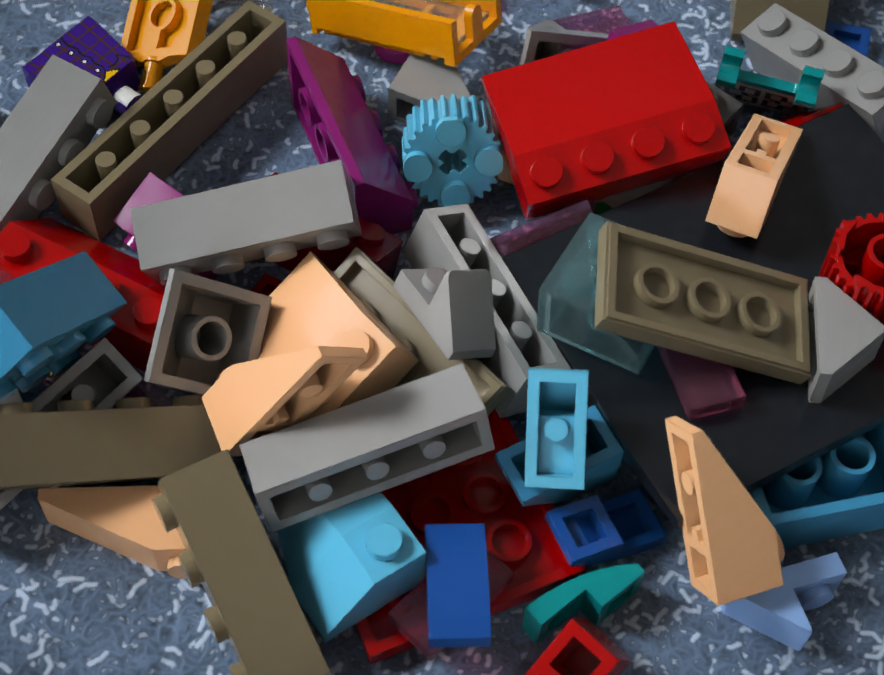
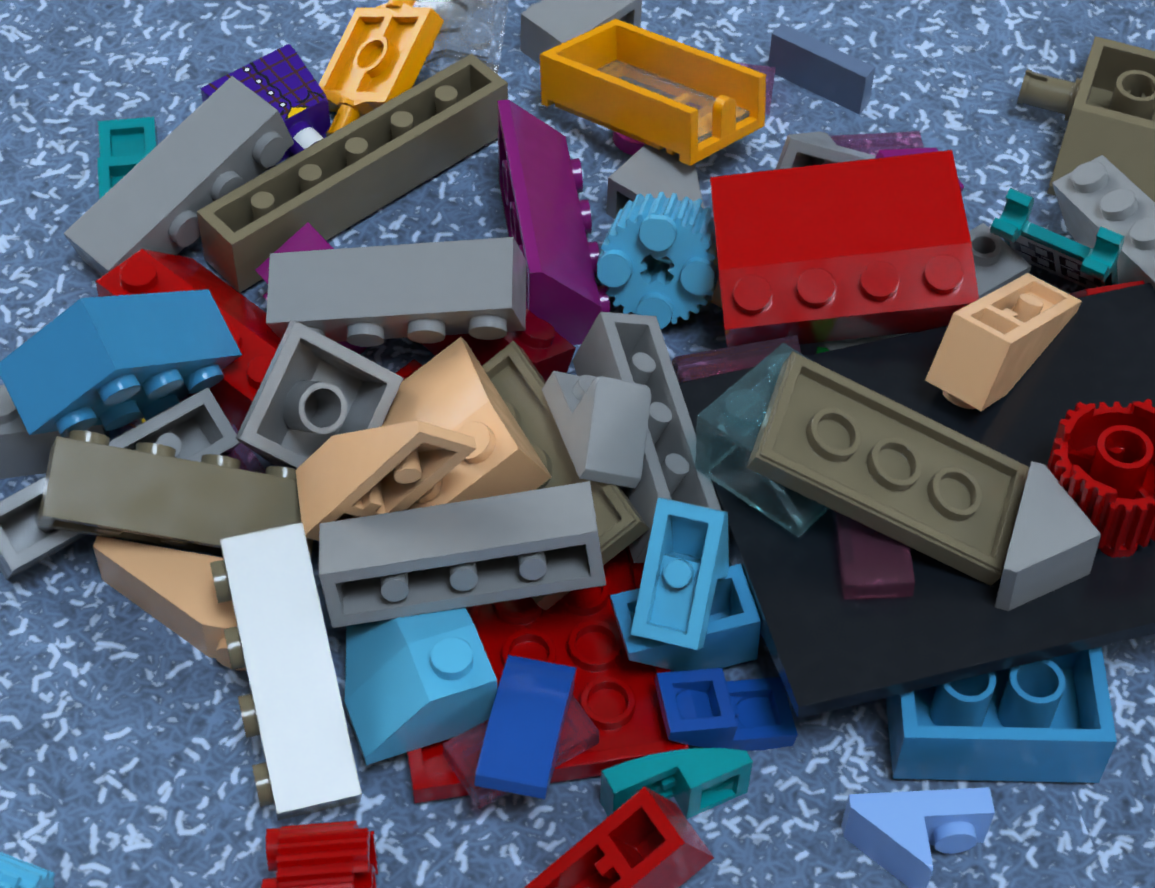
camera: 15 degrees right, 5 degrees down
(725, 533) = (851, 733): light nougat slope -> none

